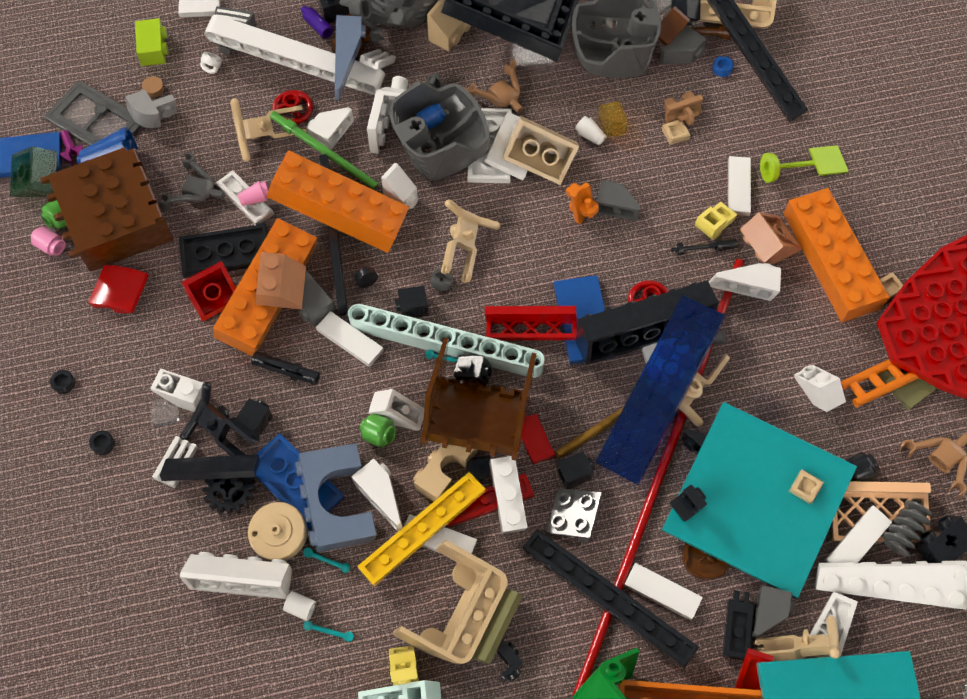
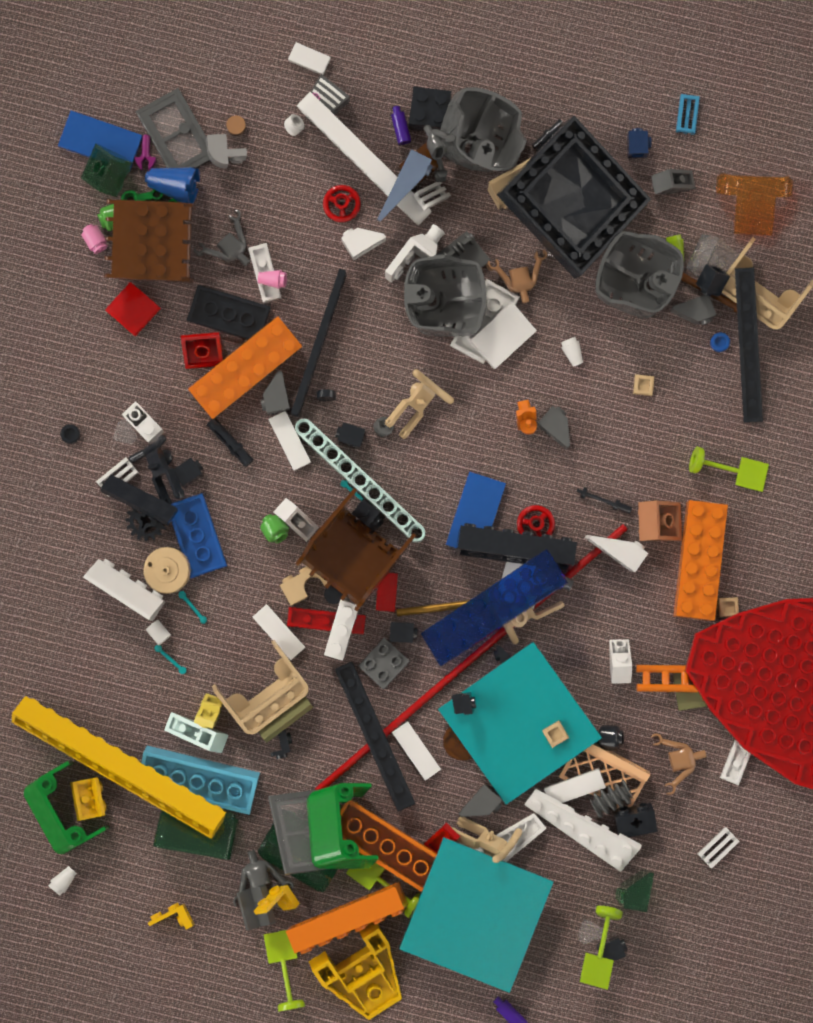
camera: 25 degrees right, 20 degrees up
(62, 382) = (60, 368): black tile -> none
(150, 42) = (252, 80): lime brick -> none
(256, 127) = (302, 214): tan piece -> none
(280, 281) = (254, 377): nougat slope -> none
(291, 127) = (327, 230): bright green bar -> none
(329, 530) = (201, 588): sand blue arch -> none
(337, 201) = (332, 325): orange brick -> none
(376, 486) = (253, 576): white slope -> none
(399, 186) = (388, 333): white slope -> none
(421, 529) = (269, 621): yellow plate -> none
(432, 115) = (445, 277): blue brick -> none
(531, 315) = (434, 493): red fence -> none
(540, 150) = (519, 352): tan slope -> none
(612, 119) = (596, 350): clear yellow brick -> none
(672, 25) = (689, 291): reddish brown slope -> none
(683, 110) = (659, 371): medium nougat hips -> none
(715, 220) = (625, 484): light yellow brick -> none
(738, 626) = (453, 801): black hinge -> none
(739, 185) = (664, 461): white tile -> none

